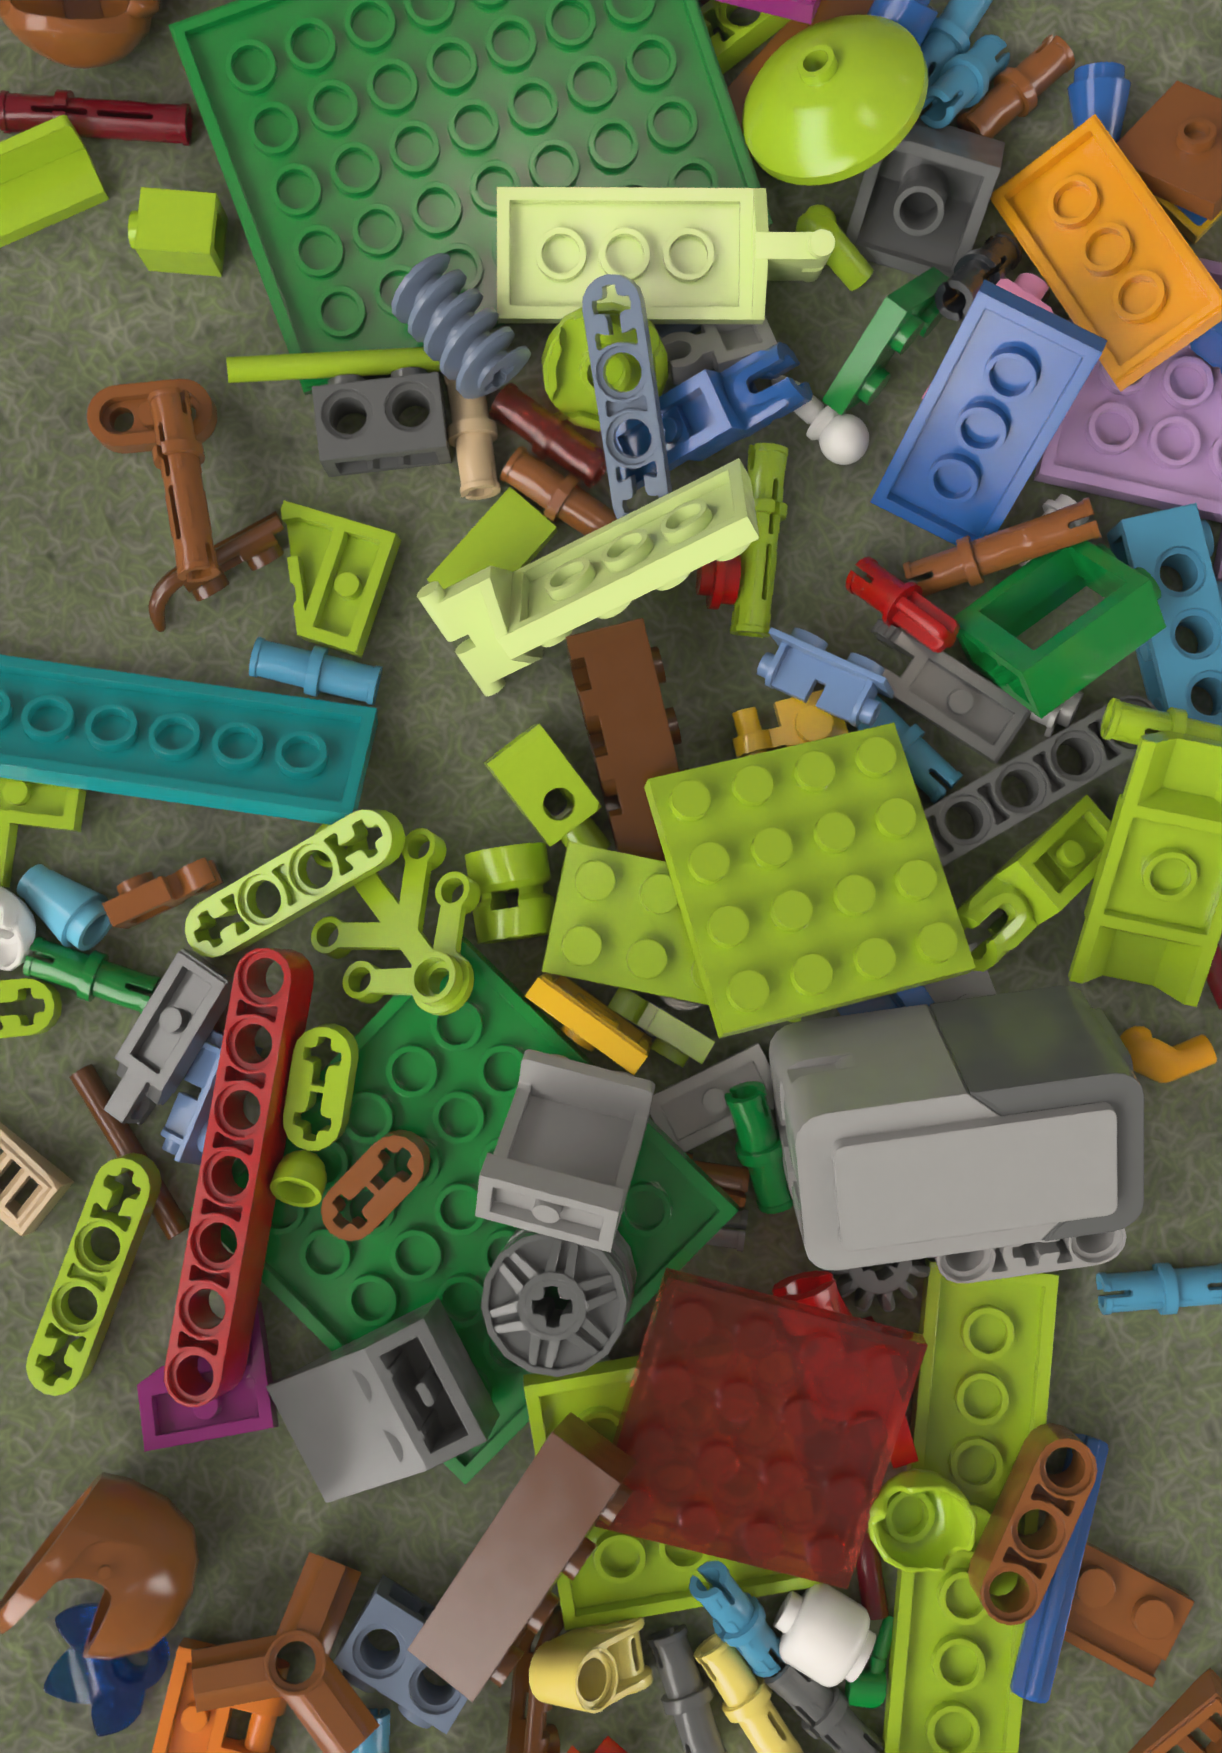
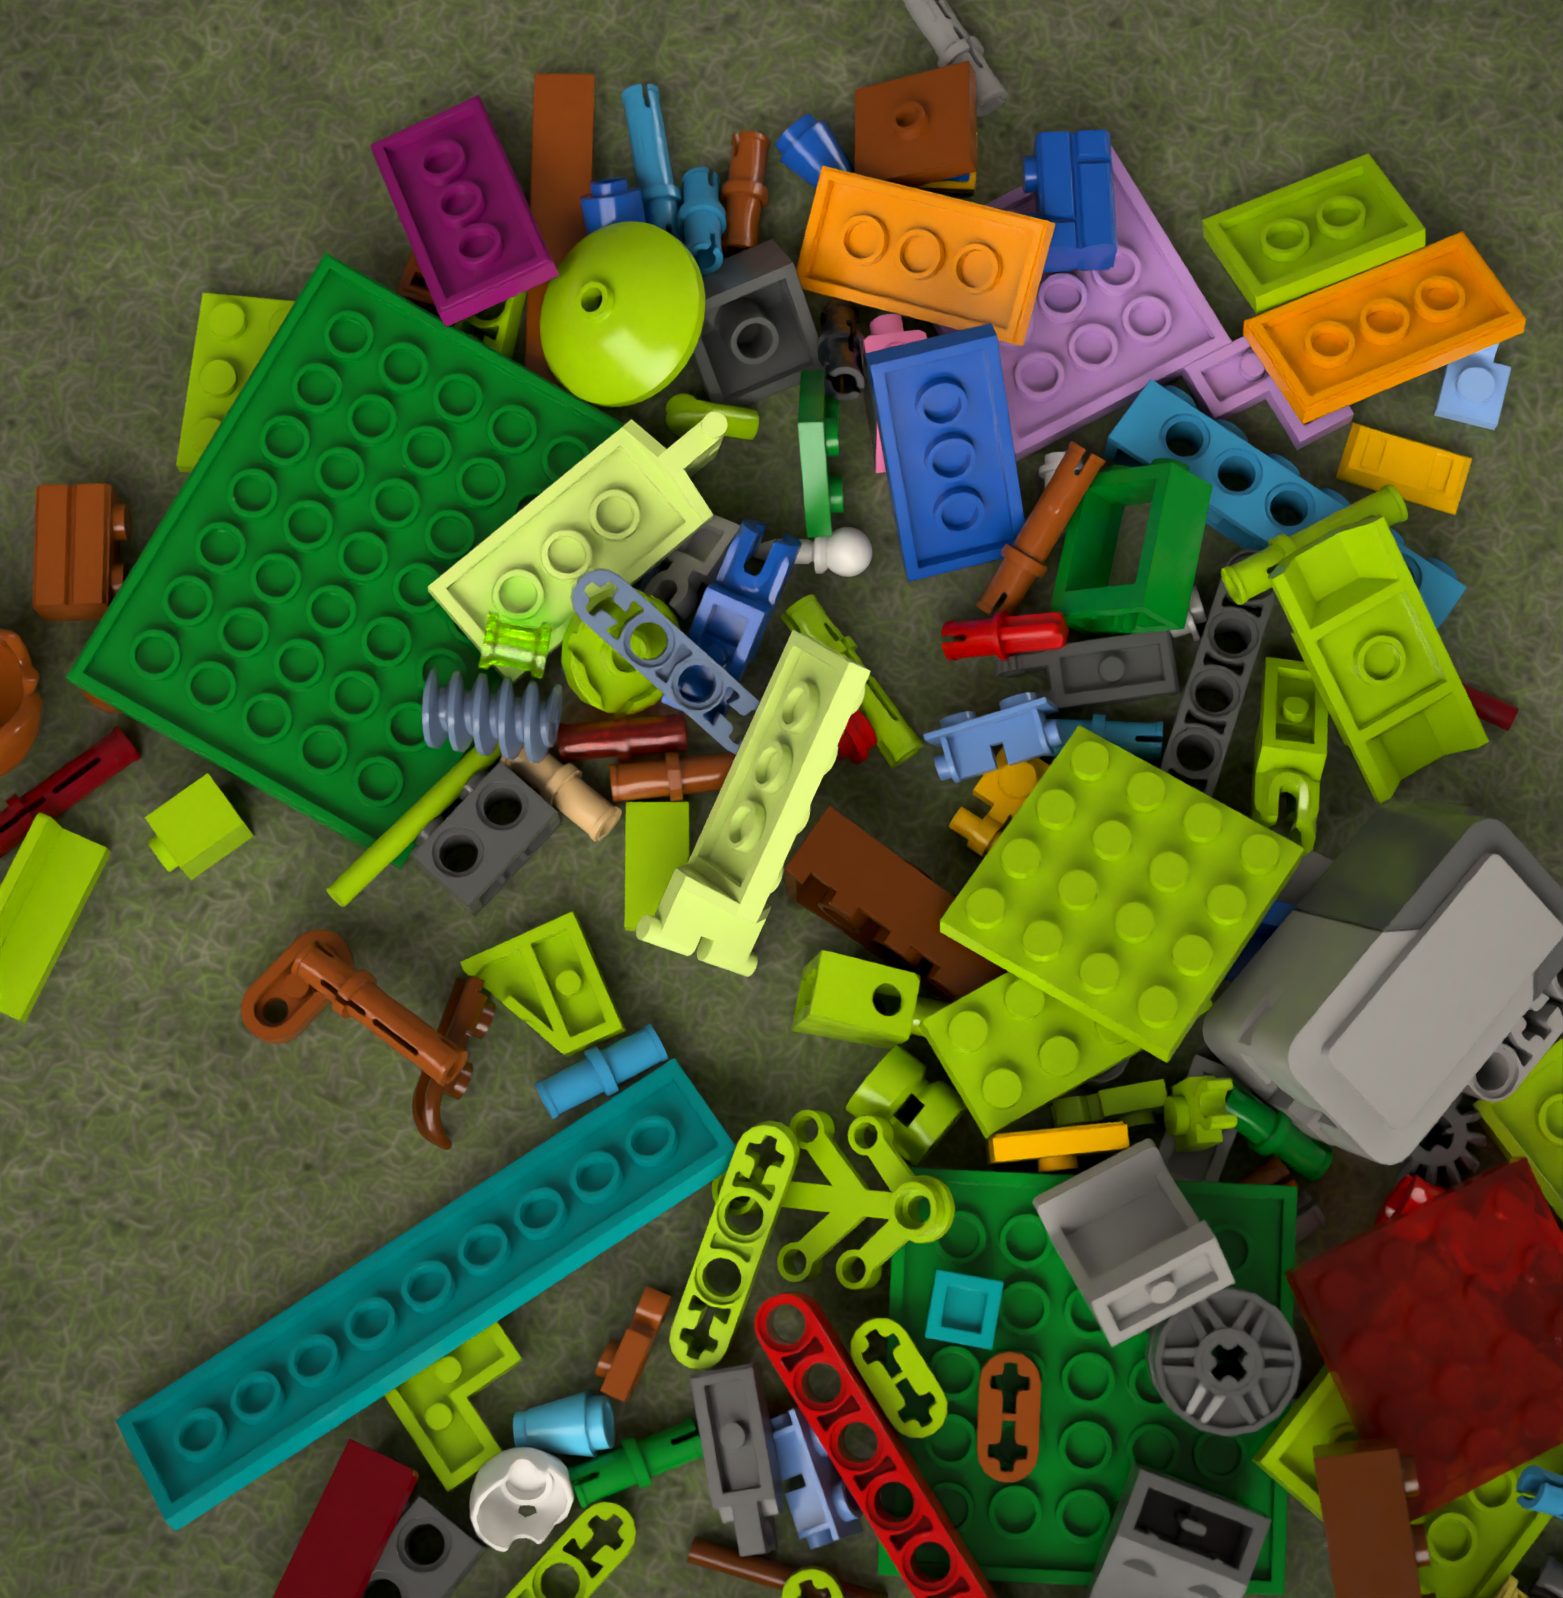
camera: 40 degrees left, 10 degrees down
(299, 1179) = (946, 1464): lime hinge -> none
(408, 1081) = (963, 1309): none -> teal plate
(520, 288) = (515, 645): none -> clear neon green bush
(714, 1091) = (1198, 1112): none -> lime plate
(1166, 1062) = (1510, 799): light orange arm -> none

